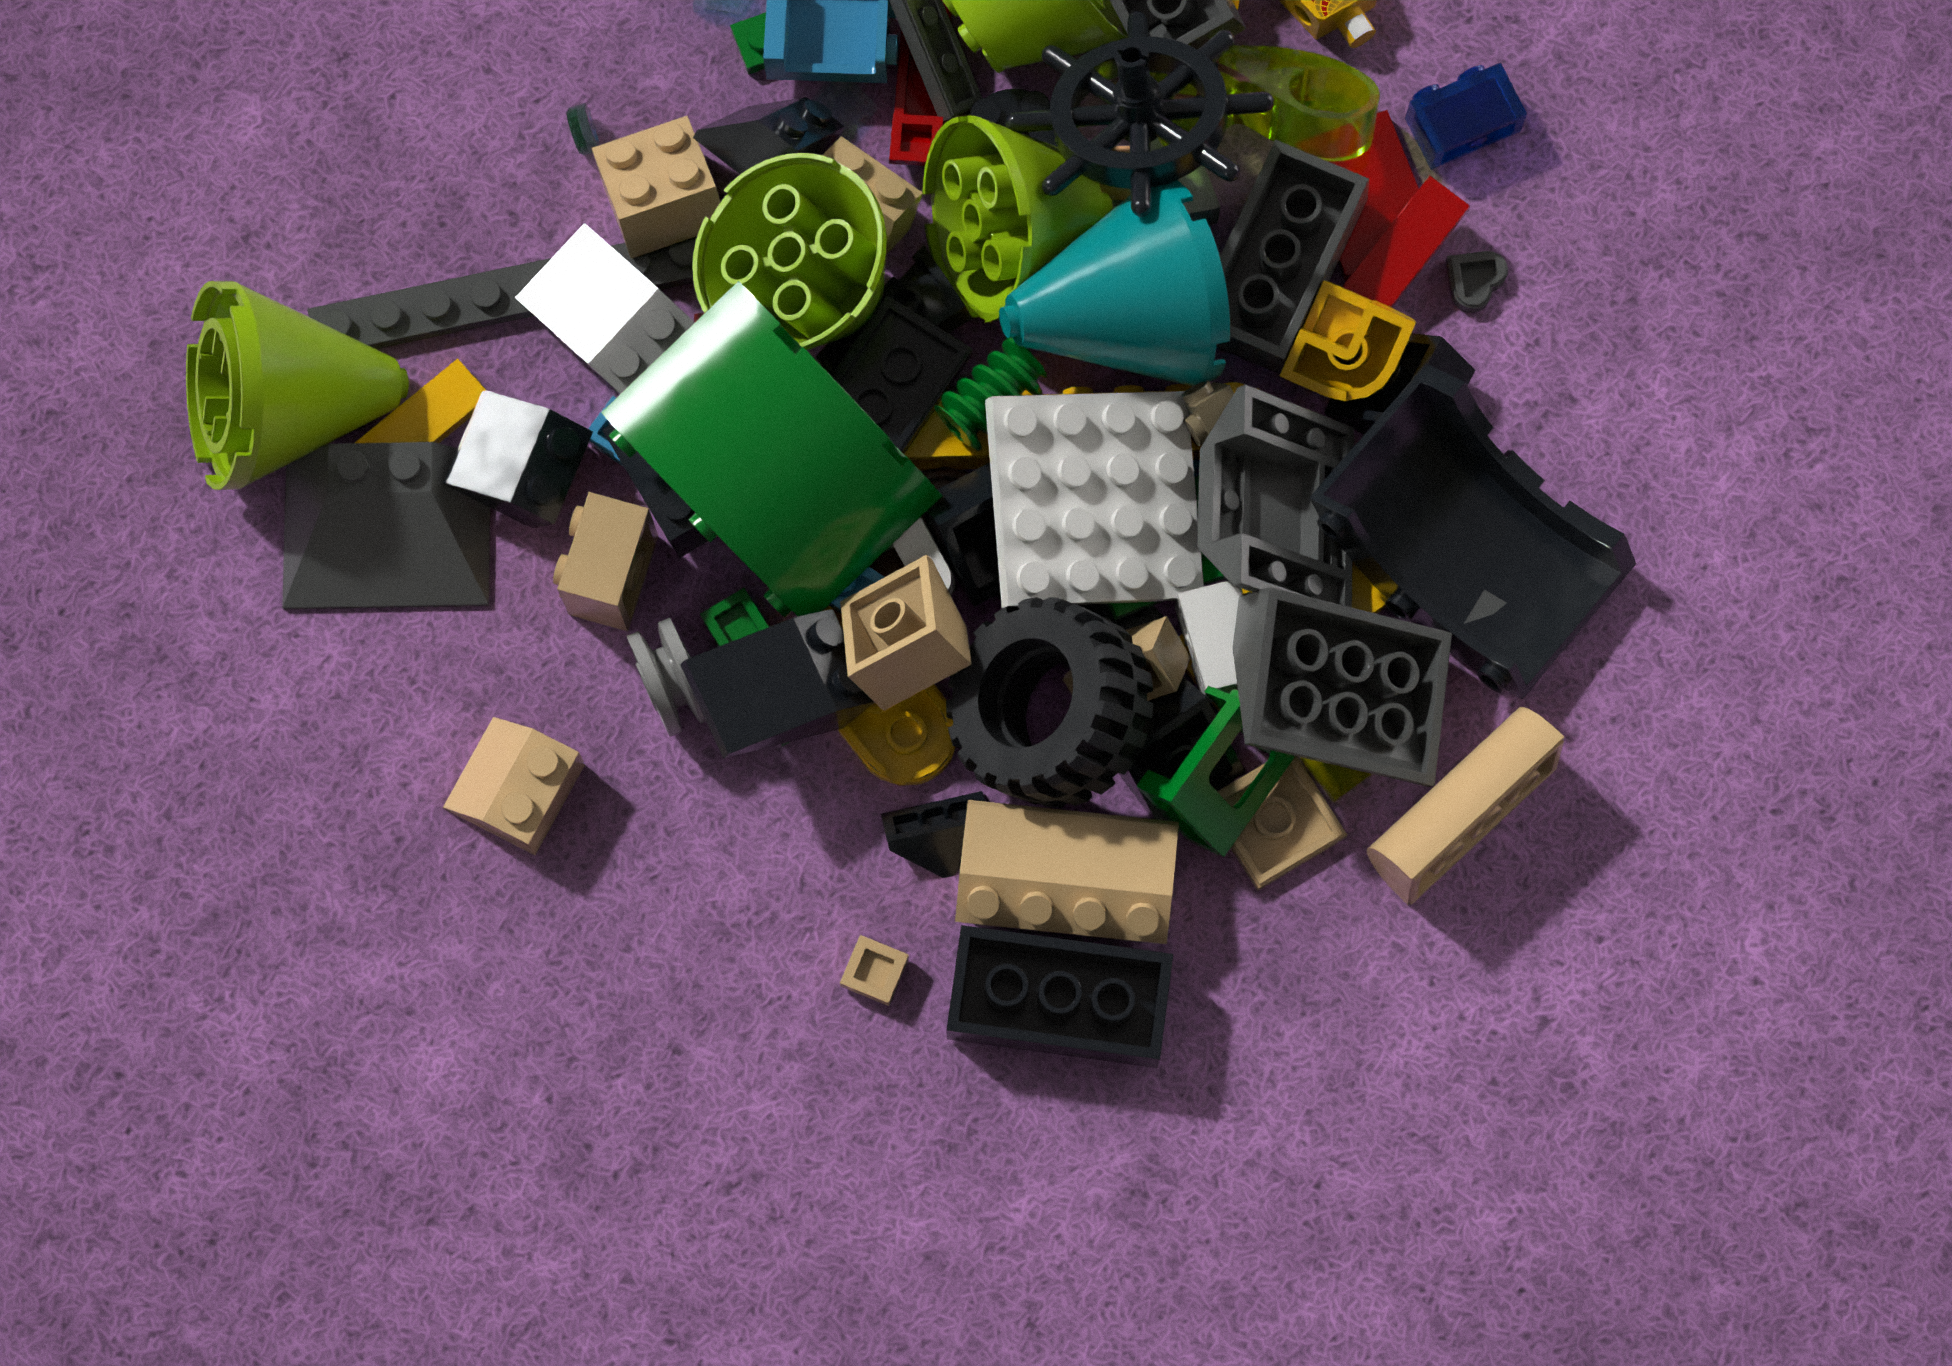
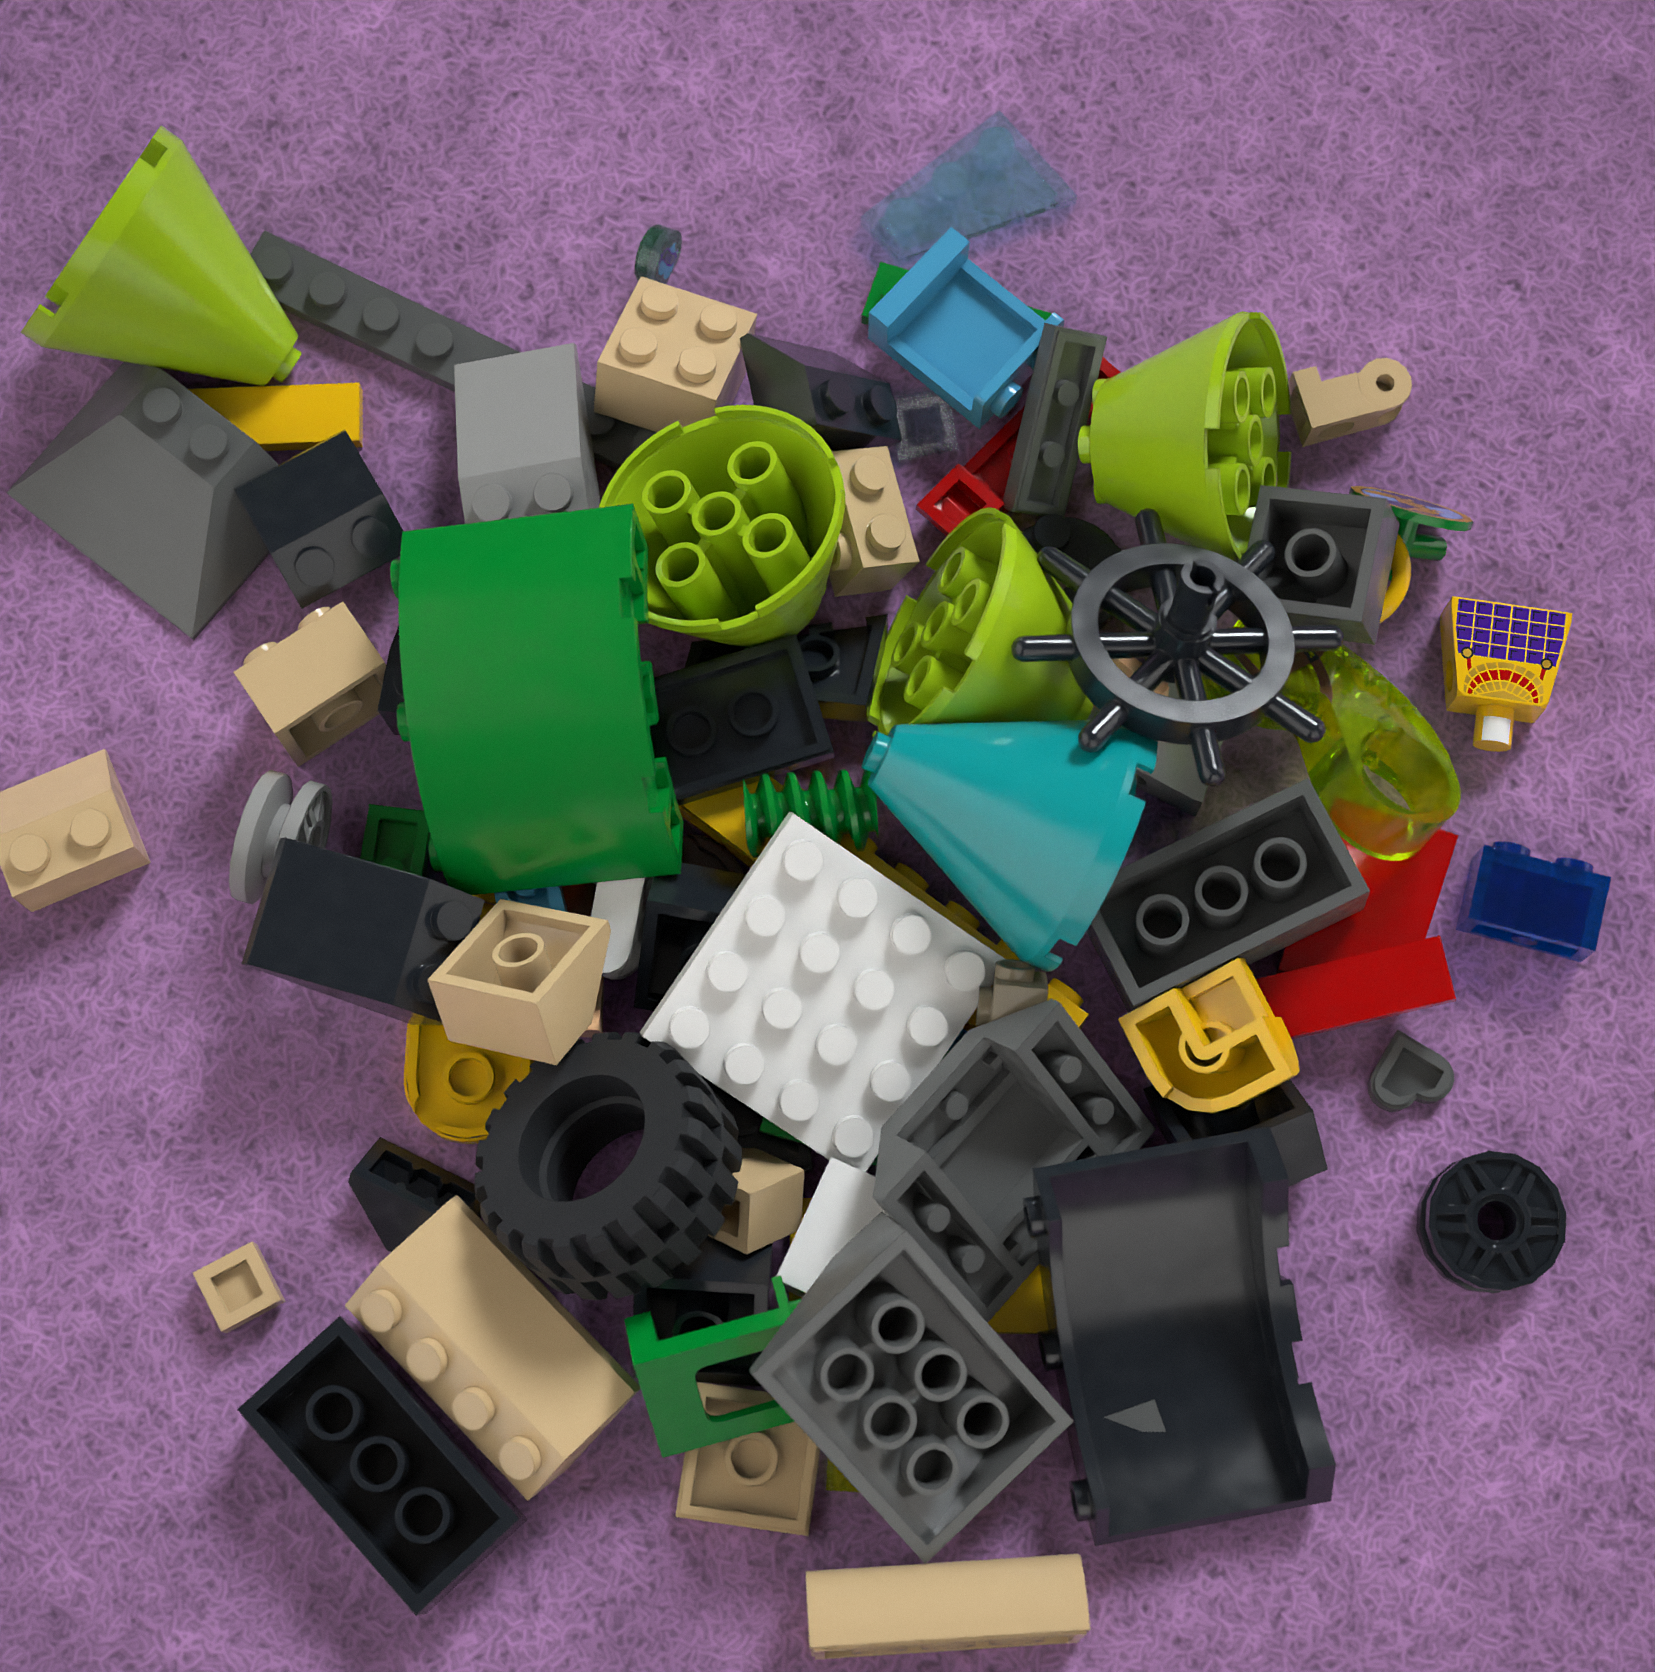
camera: 40 degrees right, 0 degrees up
(1600, 297) = (1530, 1213): none -> black wheel

